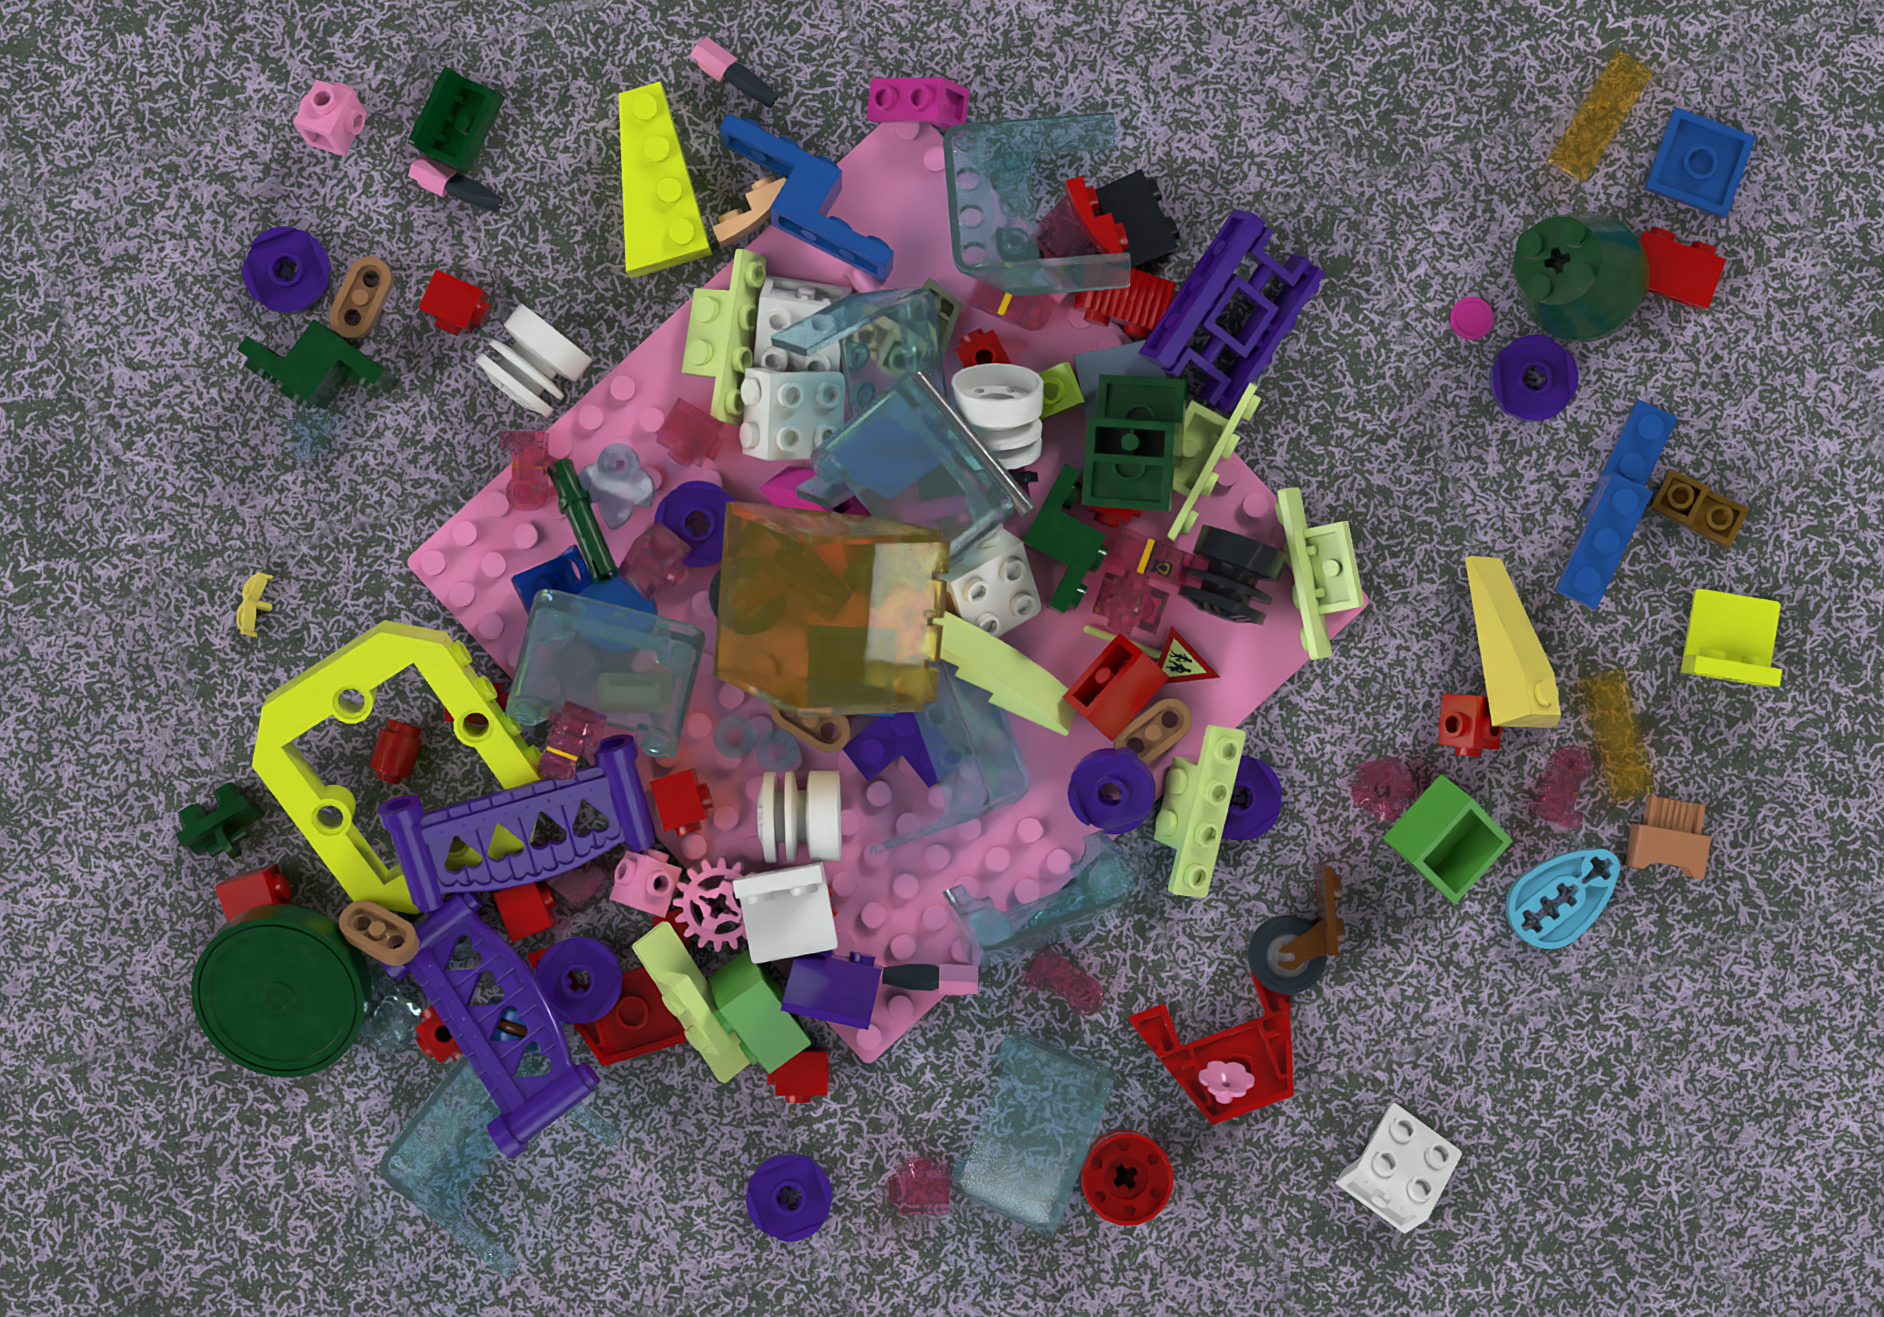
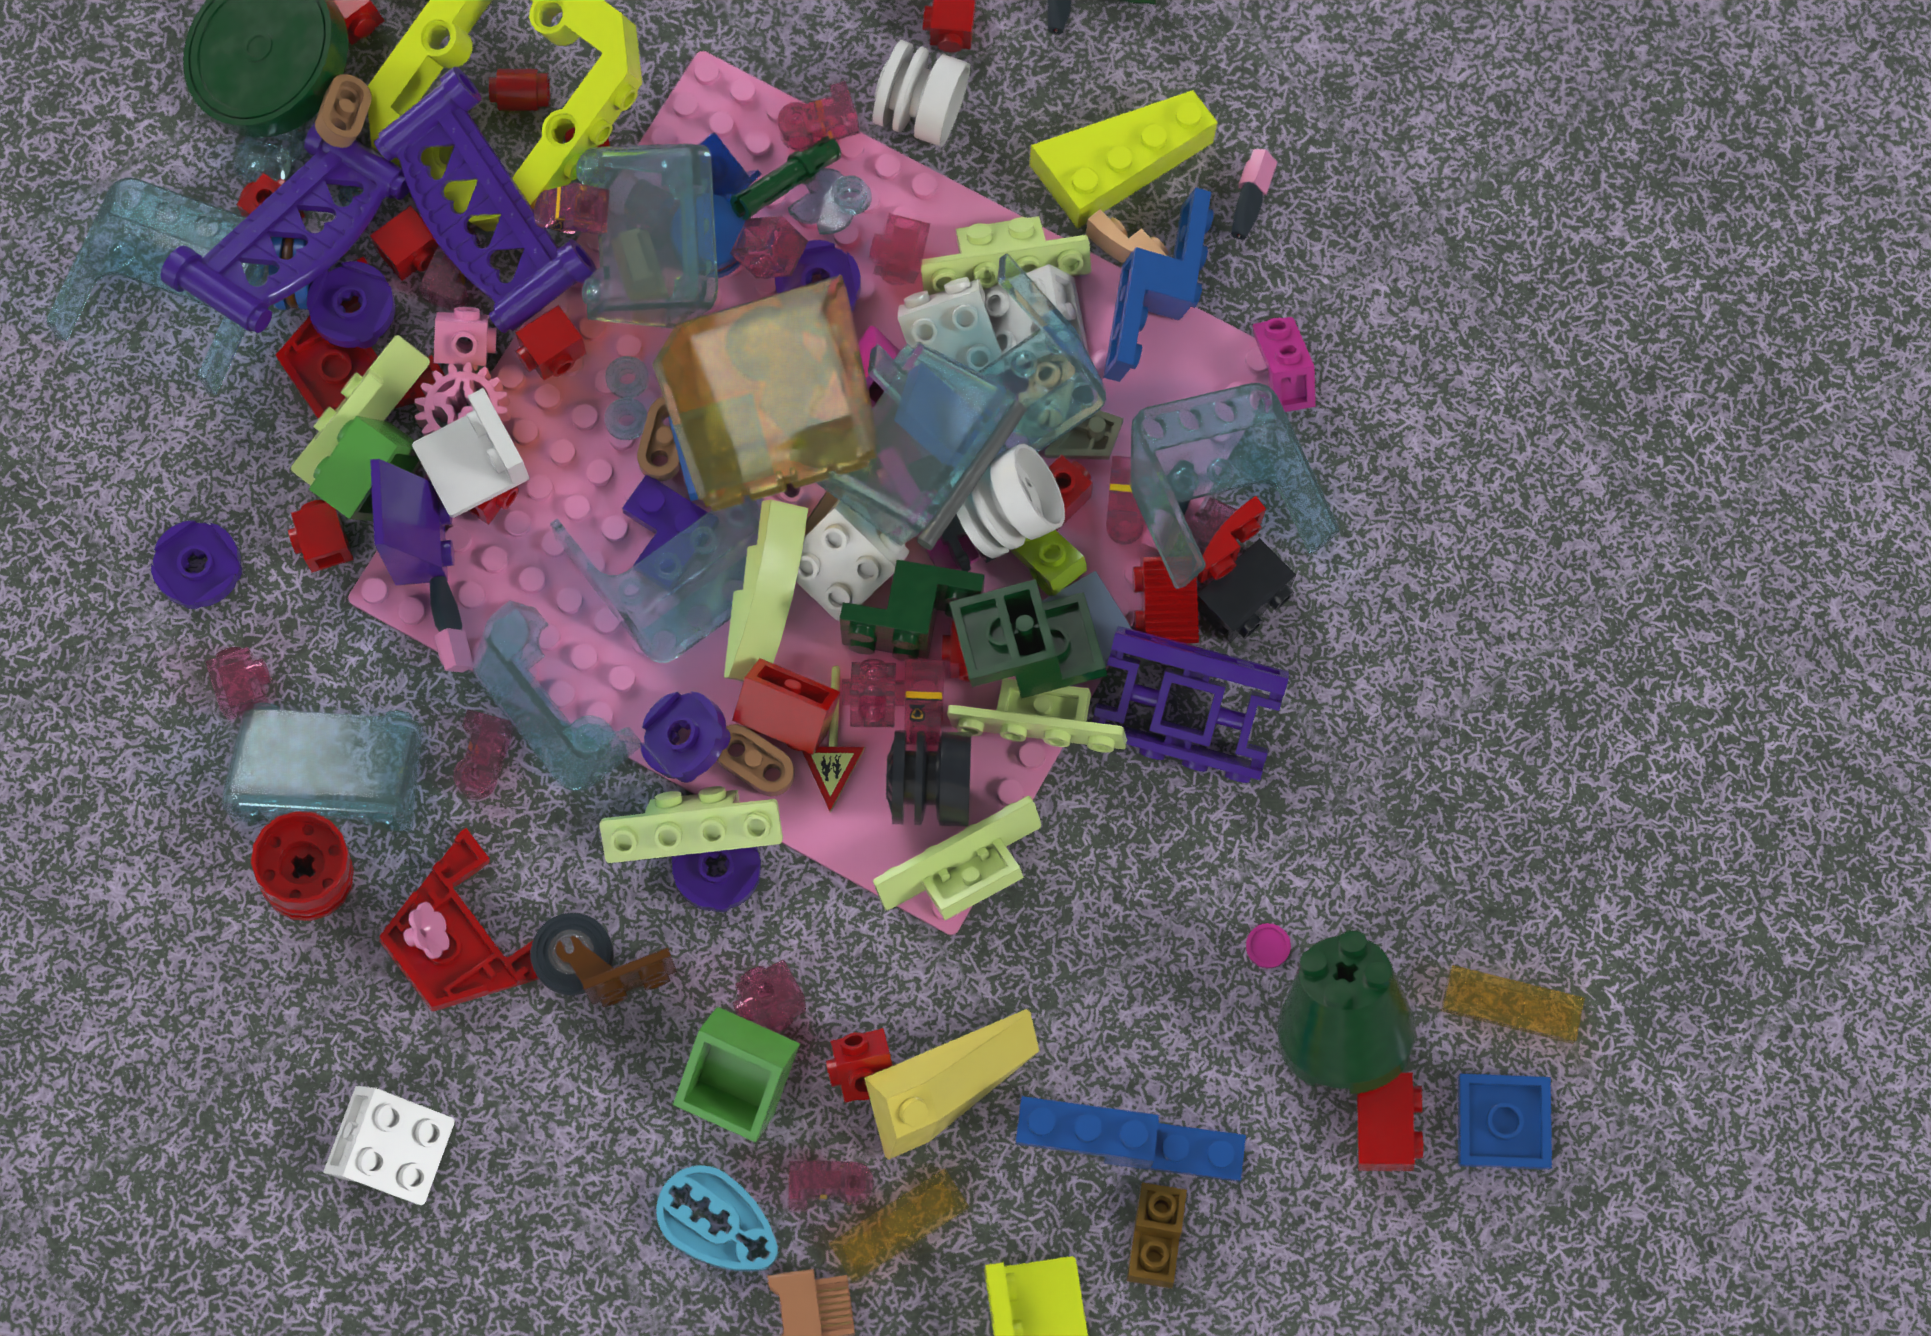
camera: 65 degrees right, 15 degrees down
(801, 816) = (568, 449): white wheel -> none
(1548, 359) = (1236, 998): dark purple plate -> none

